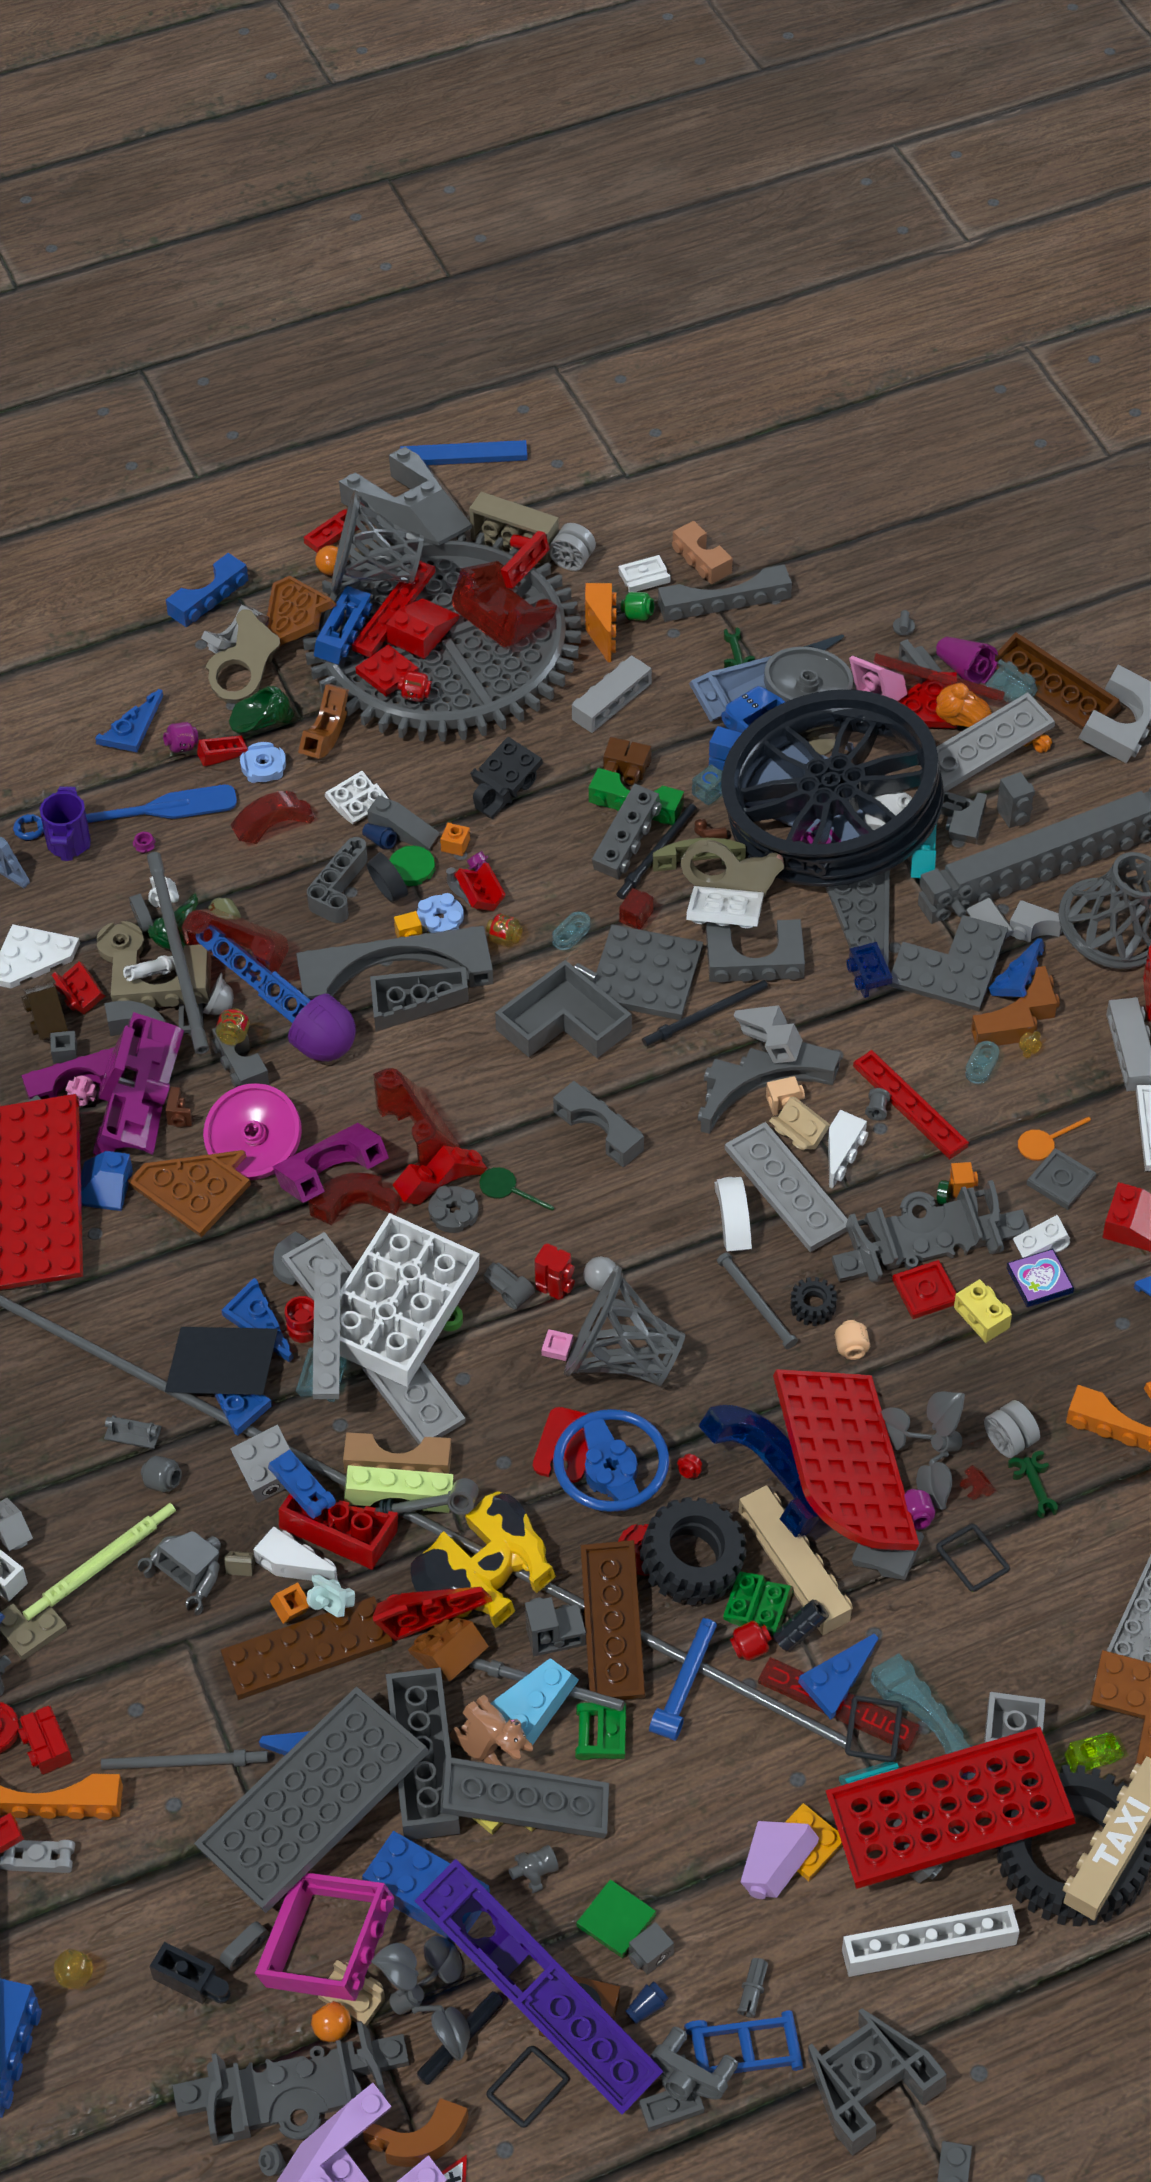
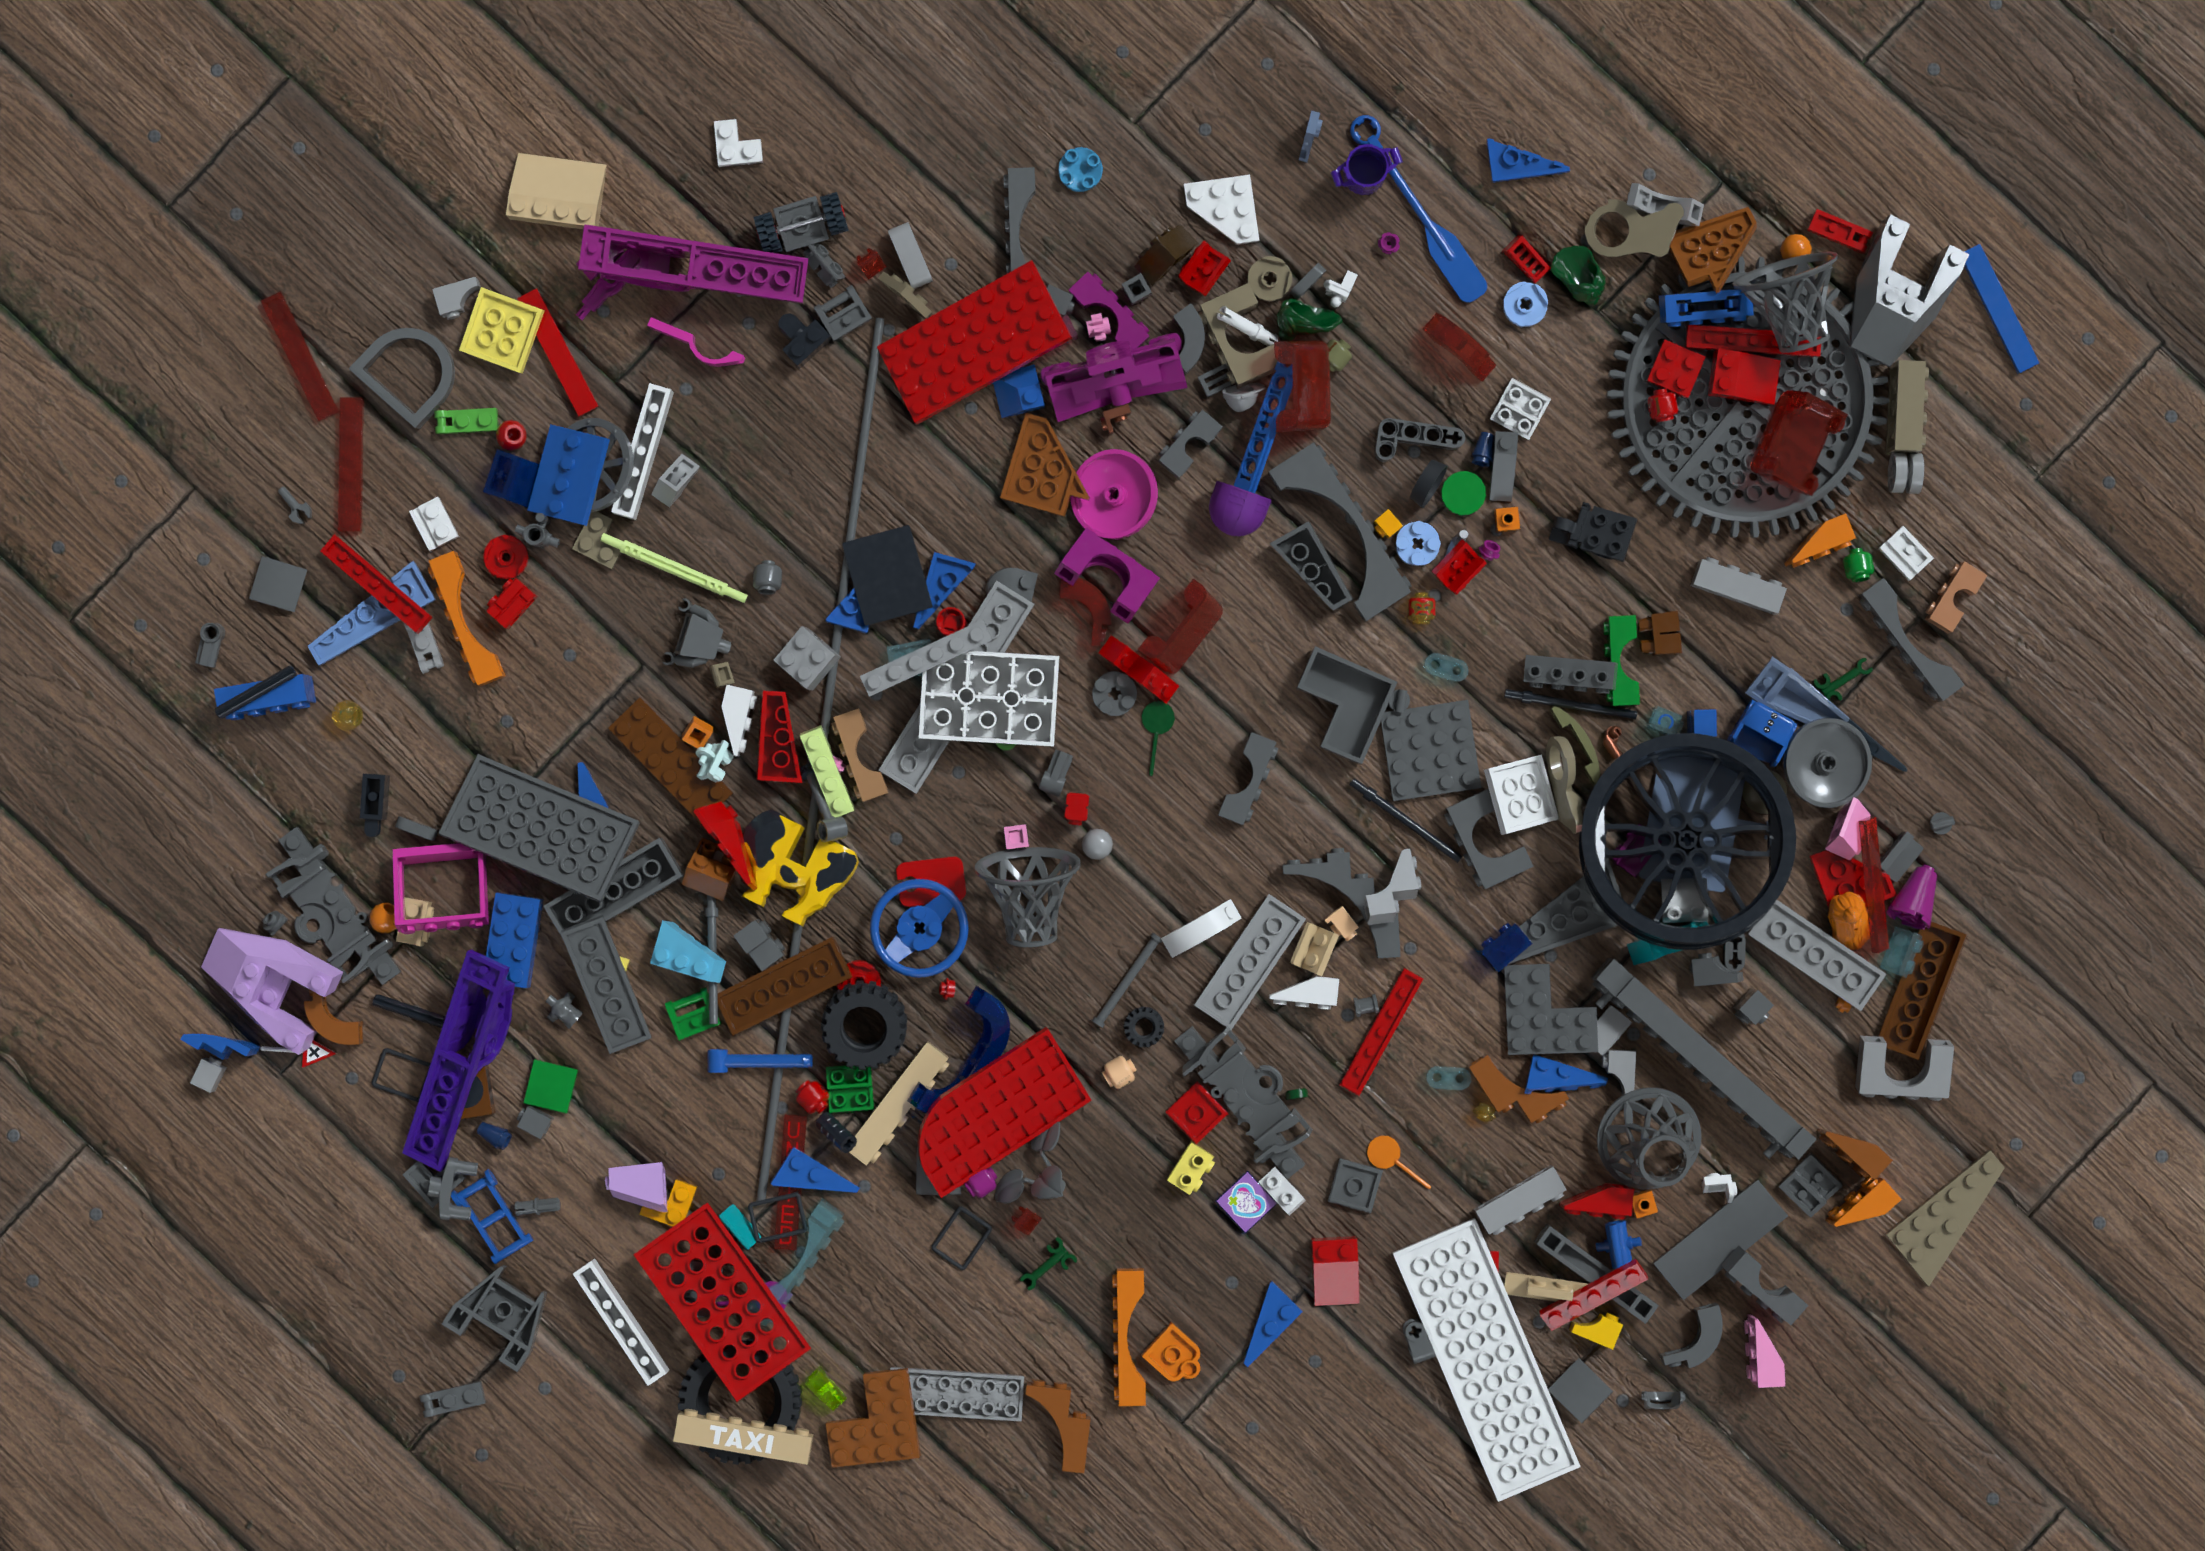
camera: 65 degrees right, 35 degrees up
(132, 1432) = (798, 534): dark grey hinge -> none
(180, 737) = (1521, 216): magenta head -> none
(189, 605) = (1686, 143): blue arch -> none
(197, 1032) = (1333, 286): dark grey piece -> none
(232, 1026) = (1206, 428): clear yellow head -> none
(238, 1758) = (559, 752): dark grey bar -> none
(301, 1484) = (789, 698): blue plate -> none
(326, 730) = (1585, 343): dark orange arch -> none
(399, 1967) = (420, 962): dark grey plant -> none
(488, 1730) = (645, 936): nougat animal -> none
(530, 553) = (1877, 443): red piece -> none
(636, 909) = (1493, 715): clear red brick -> none
(962, 1176) = (1315, 1106): orange plate -> none
(1012, 1429) = (1081, 1232): light grey wheel -> none
(1012, 1714) = (819, 1322): light grey brick -> none

